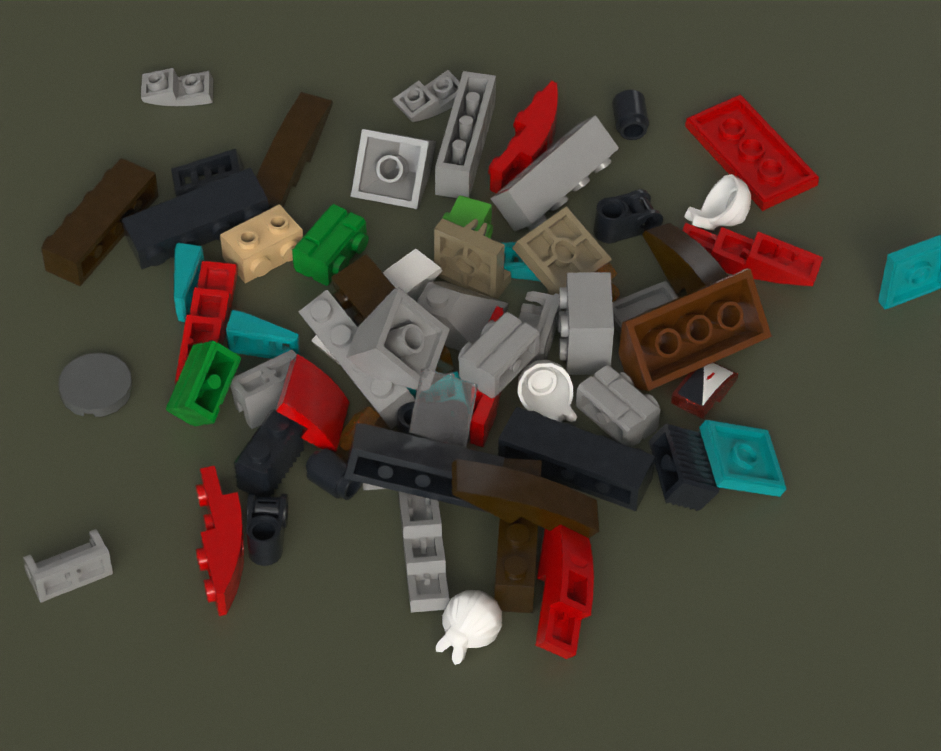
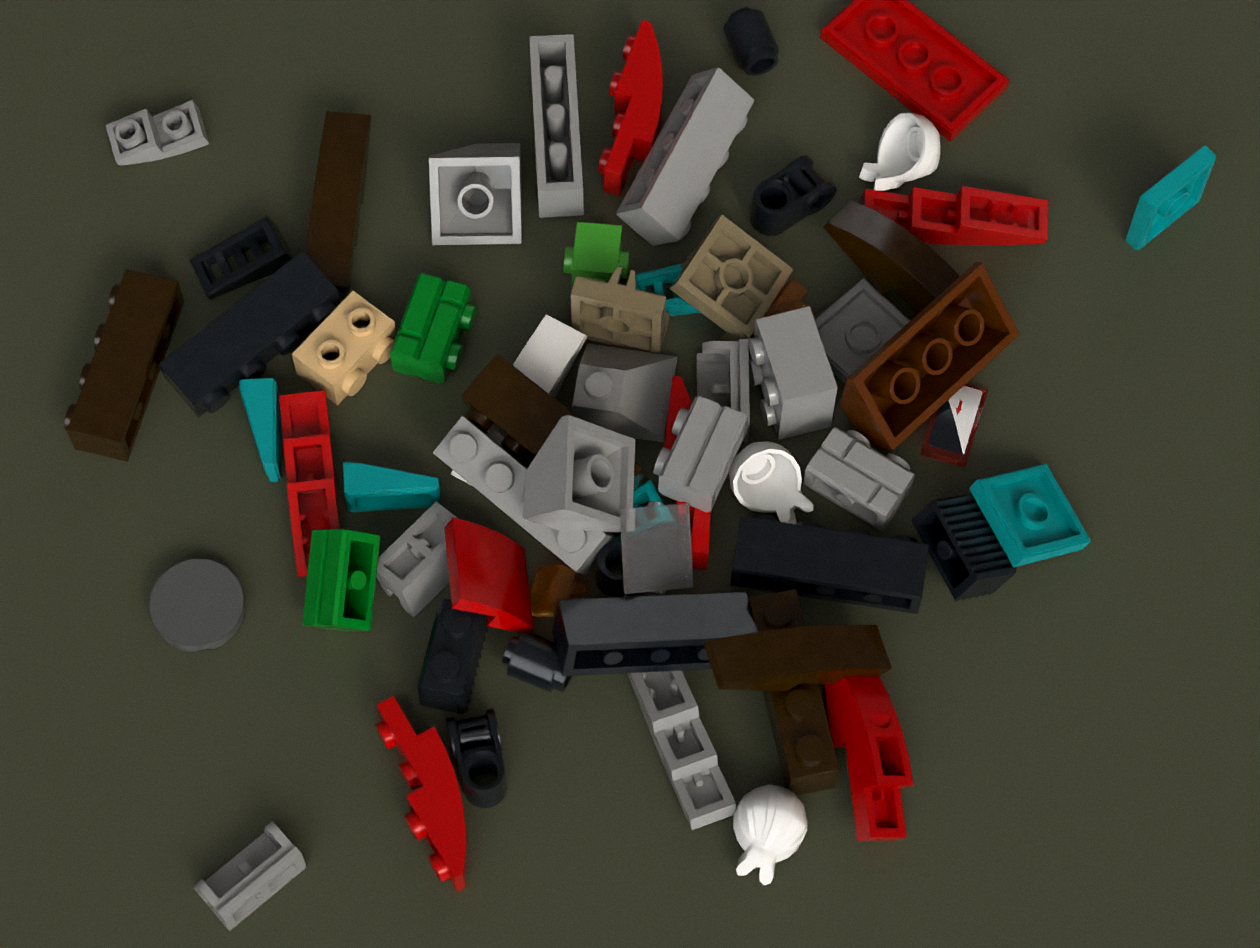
camera: 15 degrees left, 15 degrees up
(426, 101) = (491, 73): light grey slope -> none

